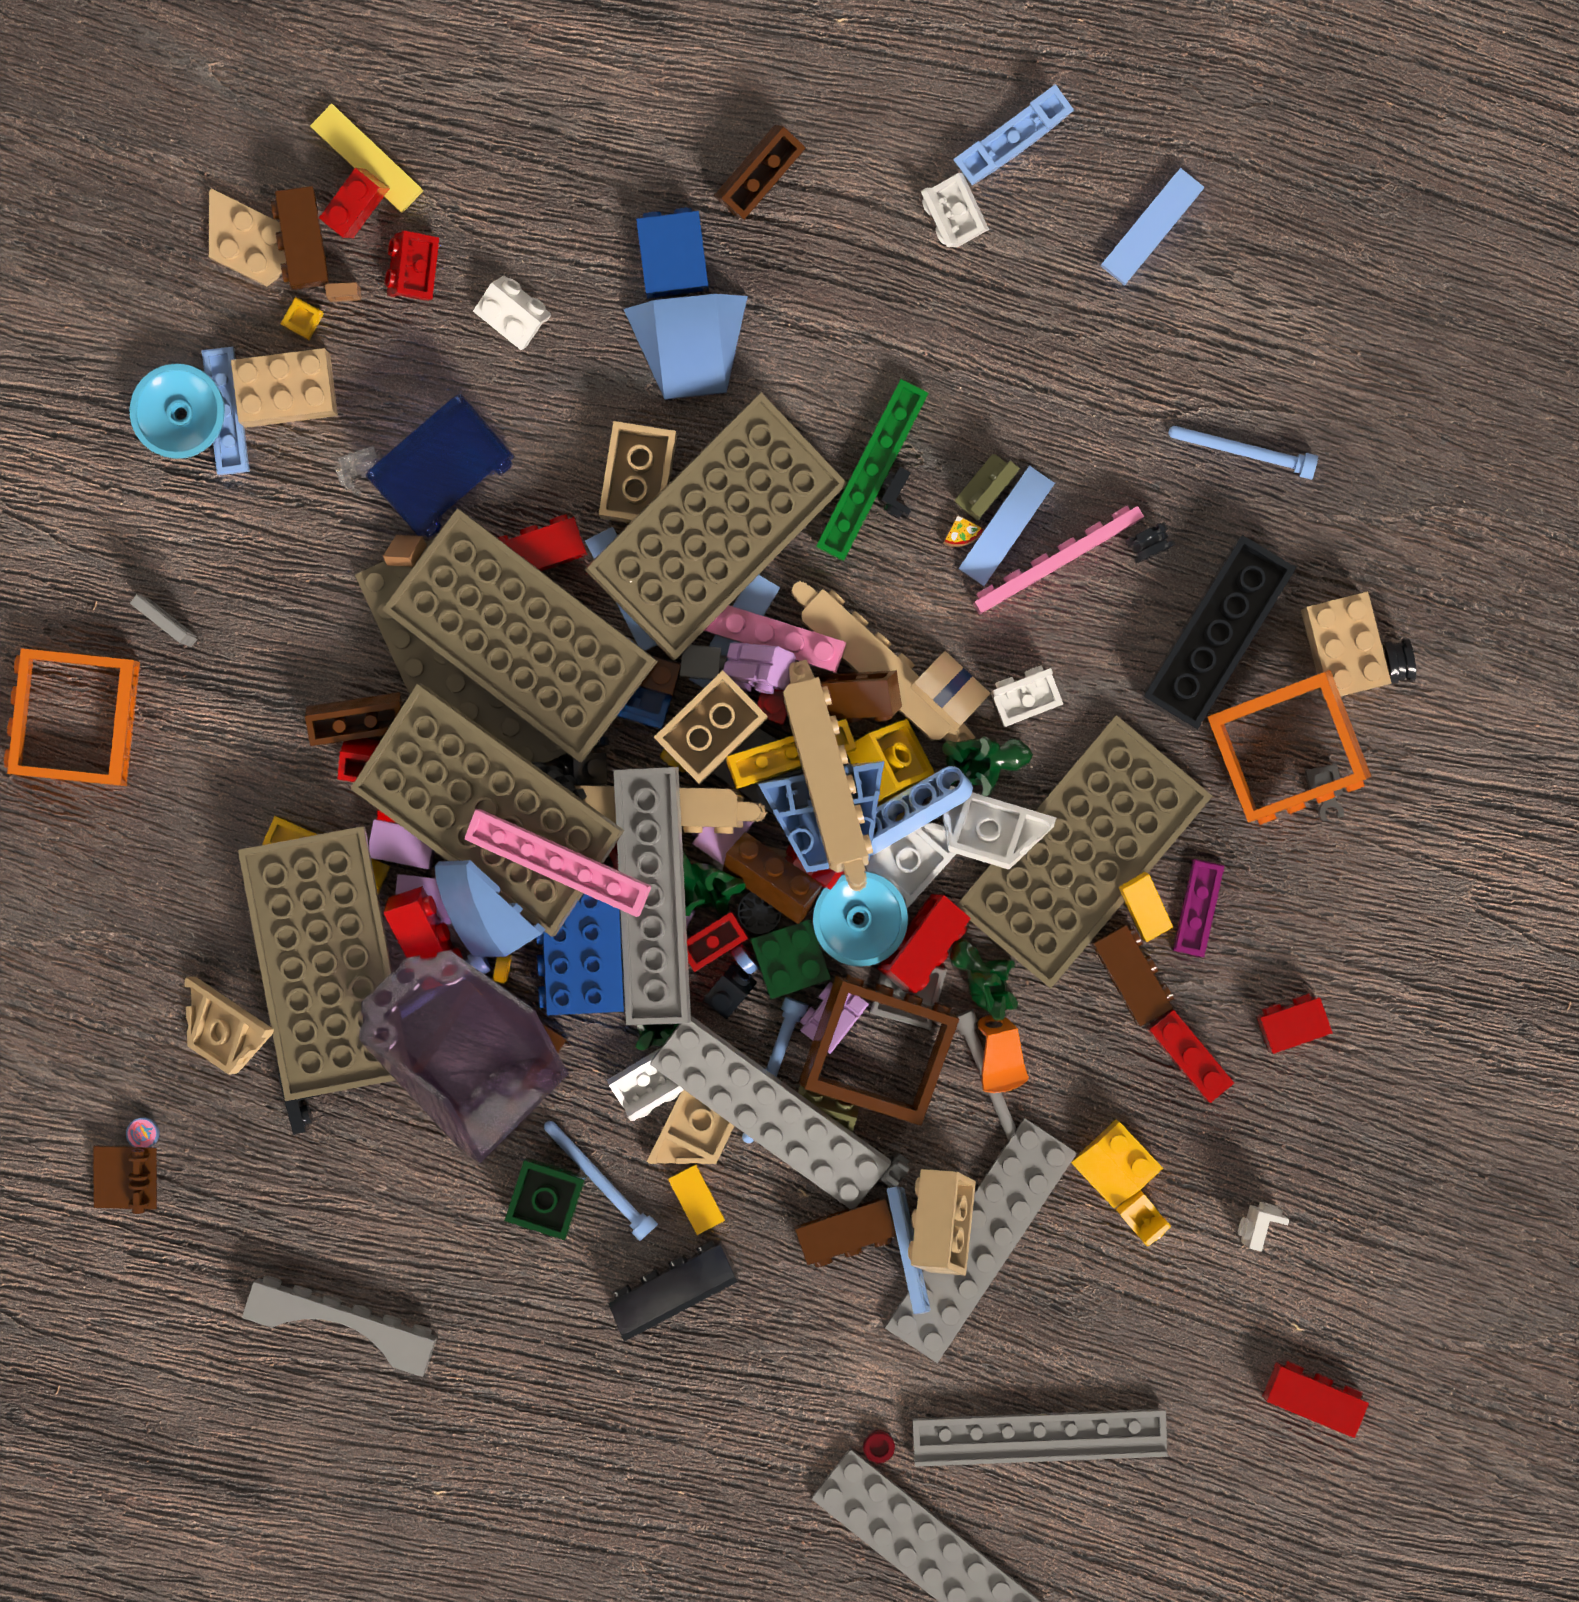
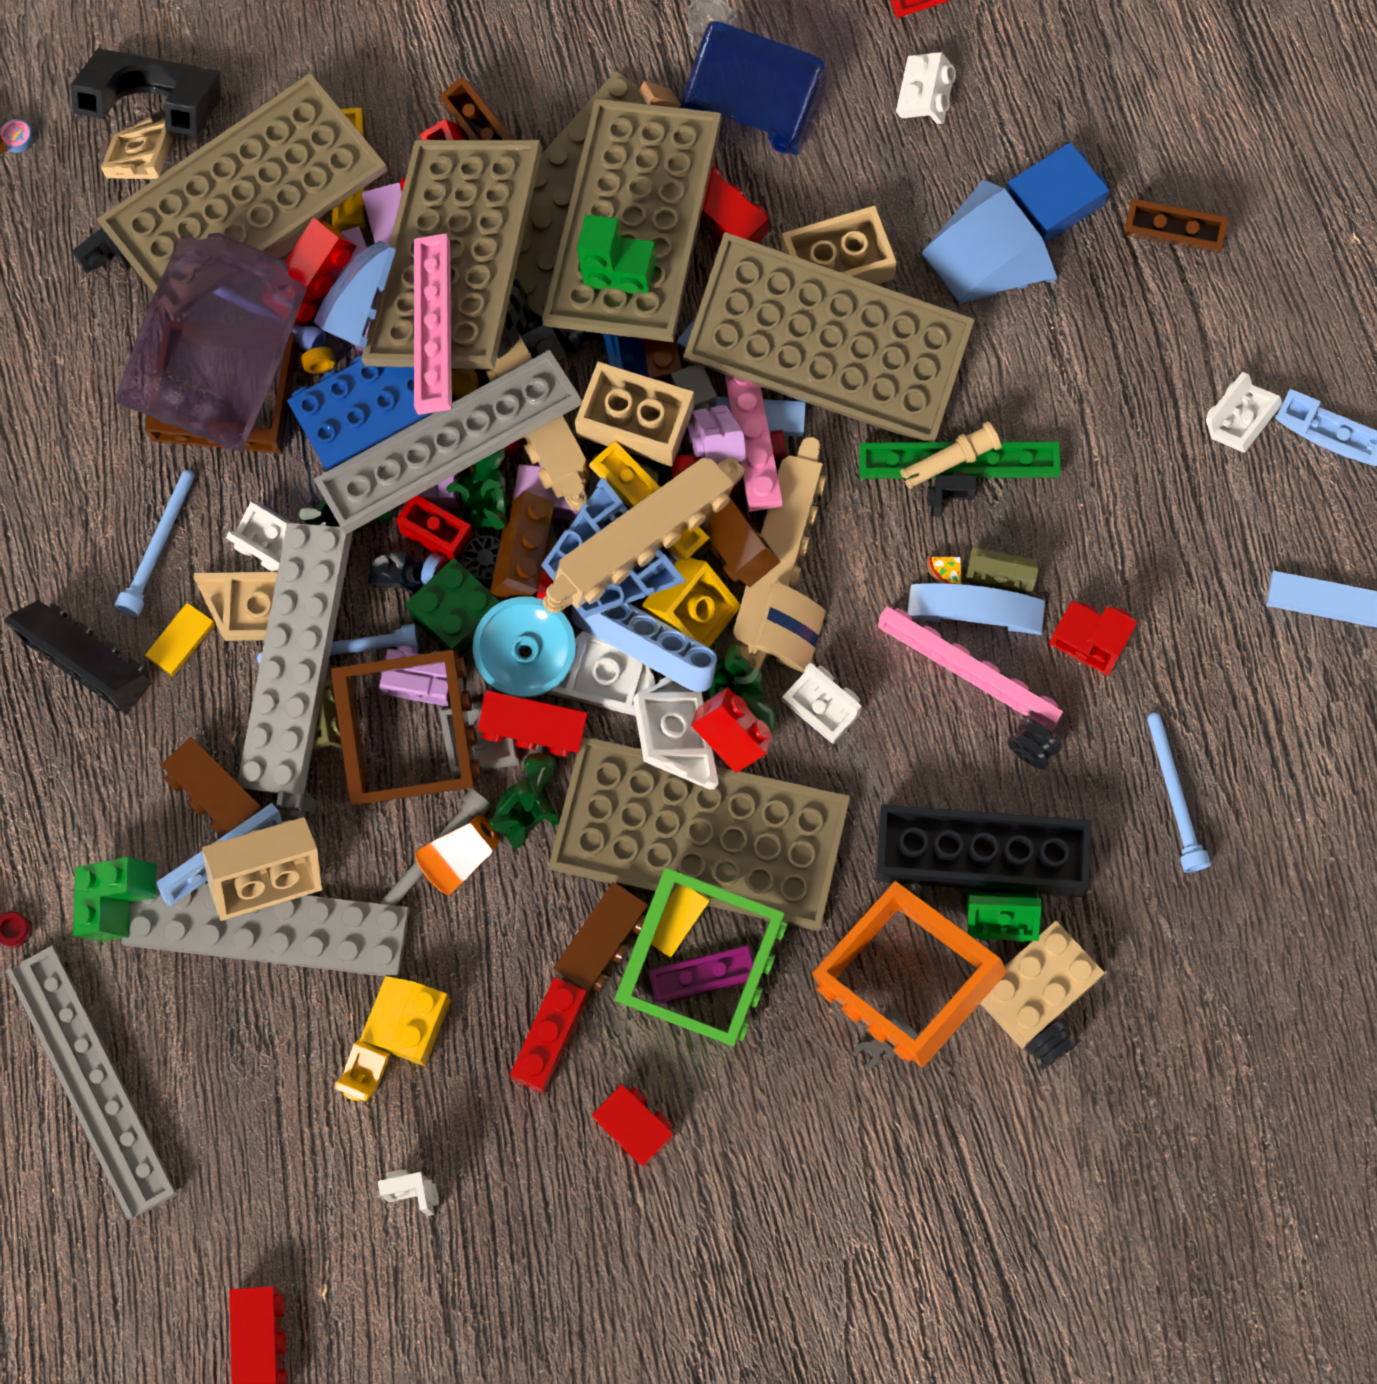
camera: 65 degrees right, 15 degrees down
(133, 1016) = (110, 75): none -> black arch
(545, 1198) = (114, 497): dark green brick -> none
(564, 674) = (614, 260): none -> green brick
(782, 615) = (778, 445): none -> dark red tile
(871, 461) = (964, 449): none -> tan pin
(895, 1359) = (105, 893): none -> green brick
(1018, 784) = (732, 730): none -> brick
(1085, 445) = (1093, 637): none -> red brick
(1151, 936) = (751, 992): none -> bright green window
(1279, 646) = (1003, 916): none -> green bracket

